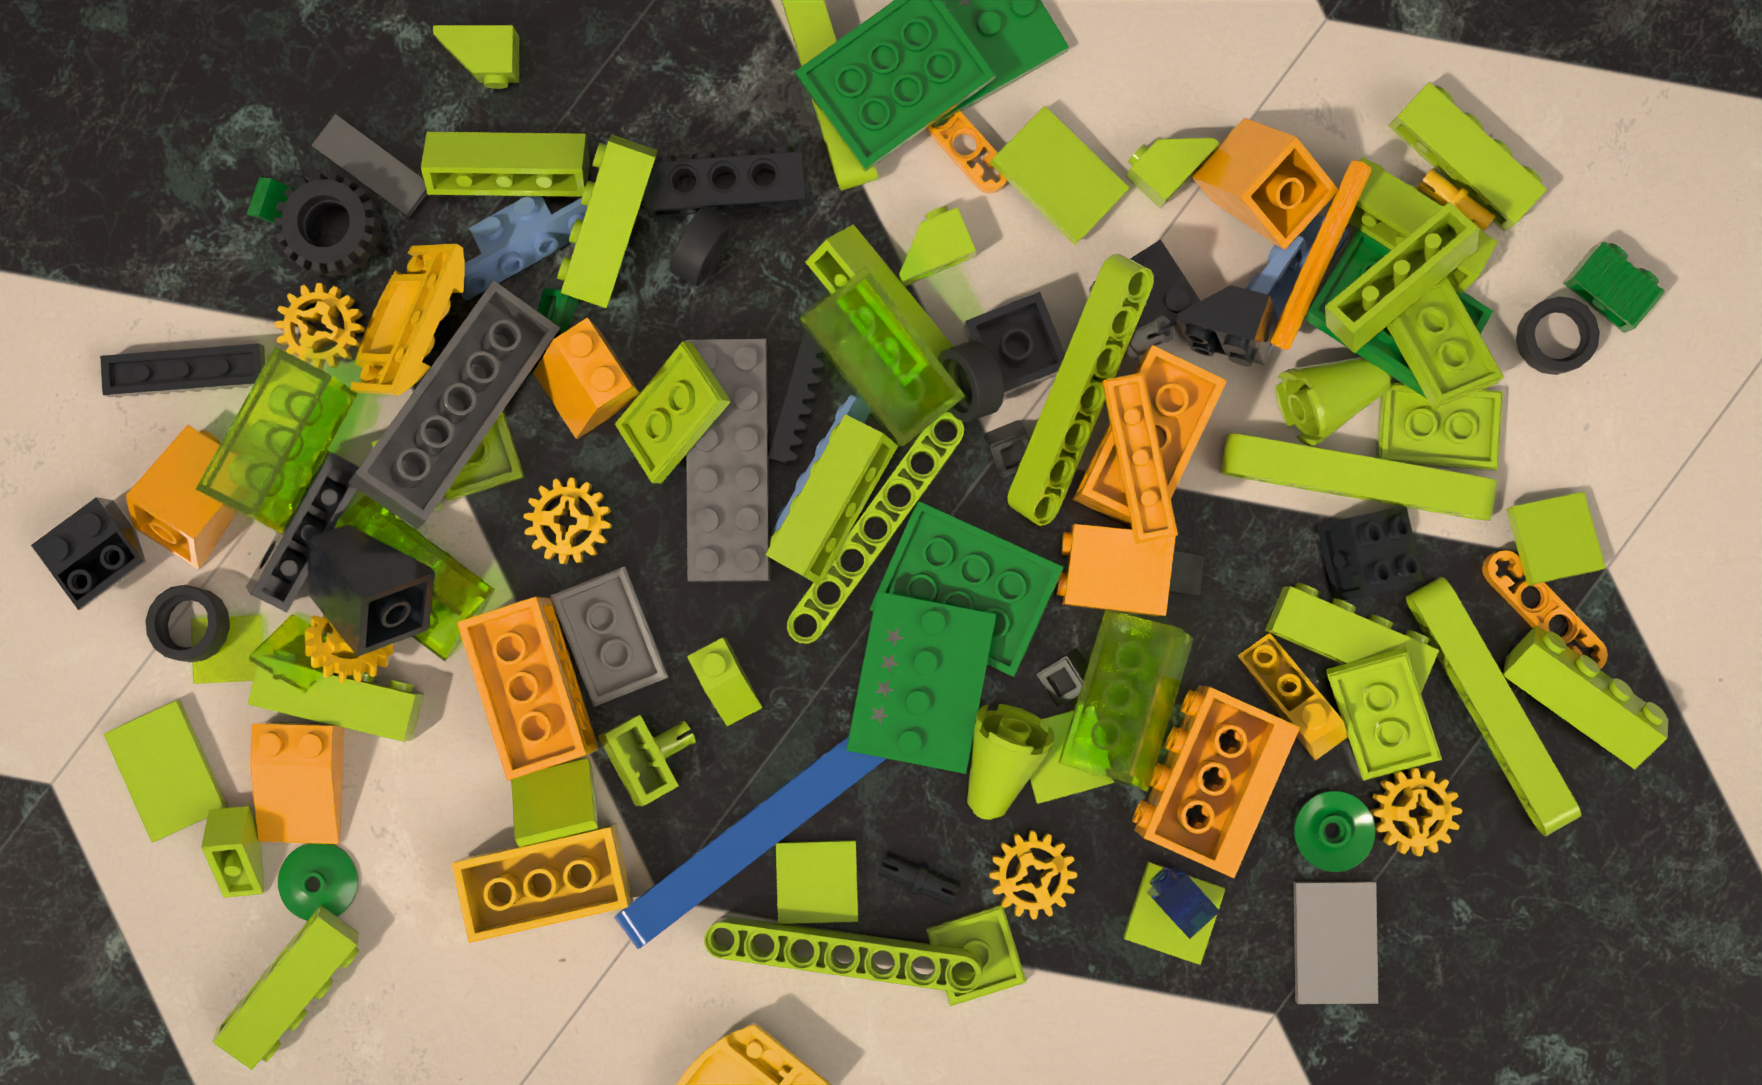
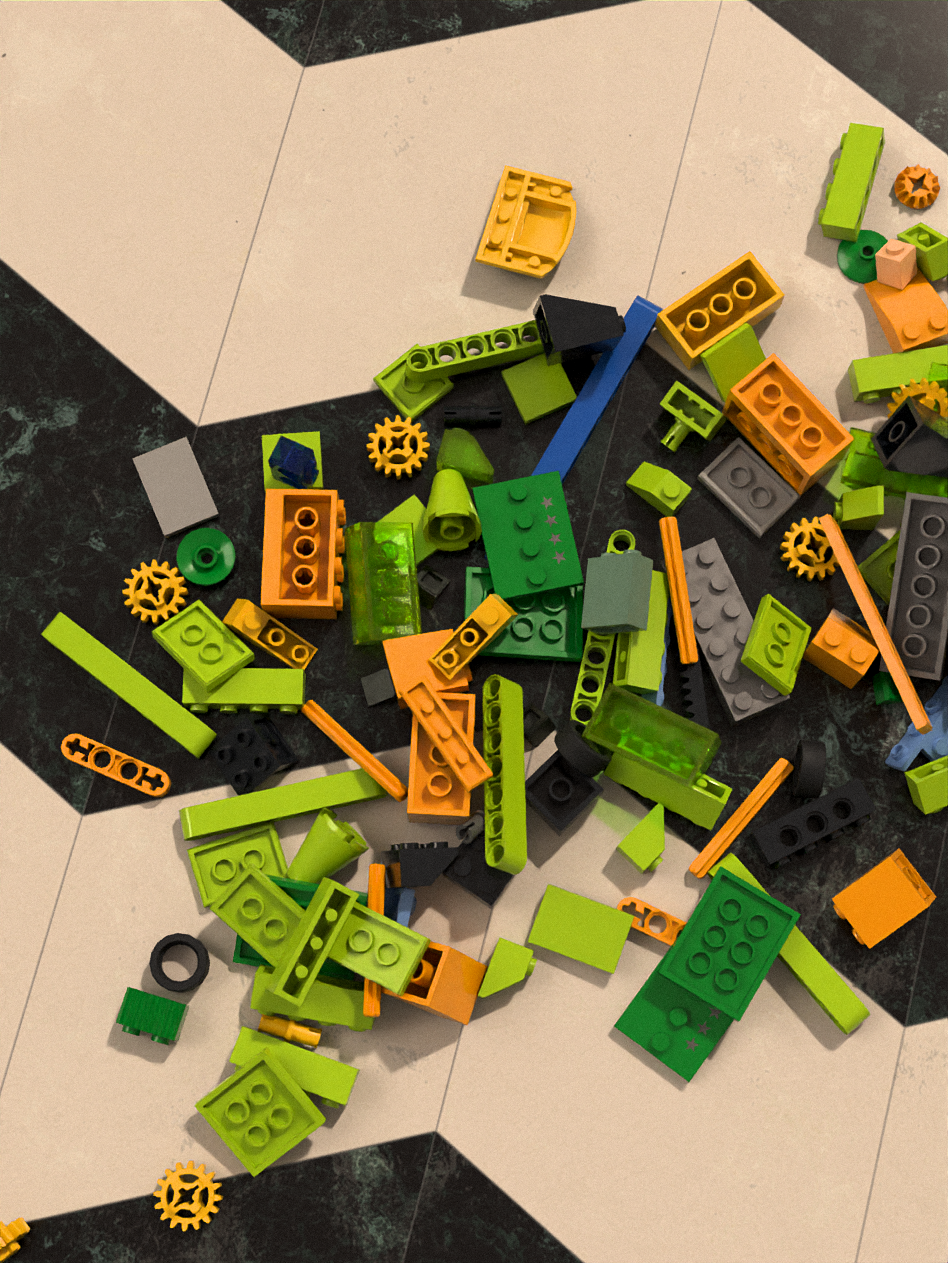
camera: 155 degrees right, 10 degrees down
(222, 954) = (920, 198): none -> light orange gear
(285, 848) = (896, 263): none -> light nougat brick
(486, 544) = (860, 508): none -> lime slope
(540, 380) = (876, 624): none -> light orange tile
(607, 221) = (881, 757): lime brick -> none
(680, 57) = (883, 899): none -> light orange slope
(746, 926) = (576, 328): none -> black slope
(764, 529) = (678, 590): none -> light orange axle
(807, 227) = (741, 818): none -> light orange axle
(845, 553) = (617, 593): none -> sand green brick
(955, 828) = (463, 454): none -> clear neon green slope
(1045, 577) = (473, 635): none -> yellow slope
(1248, 500) = (355, 750): none -> light orange axle
(1322, 235) = (379, 949): none -> lime tile
(1532, 115) = (260, 1112): none -> lime plate
(1556, 538) = (127, 817): lime tile -> none
(1586, 696) = (67, 714): lime brick -> none
(1649, 78) = (198, 1206): none -> yellow gear

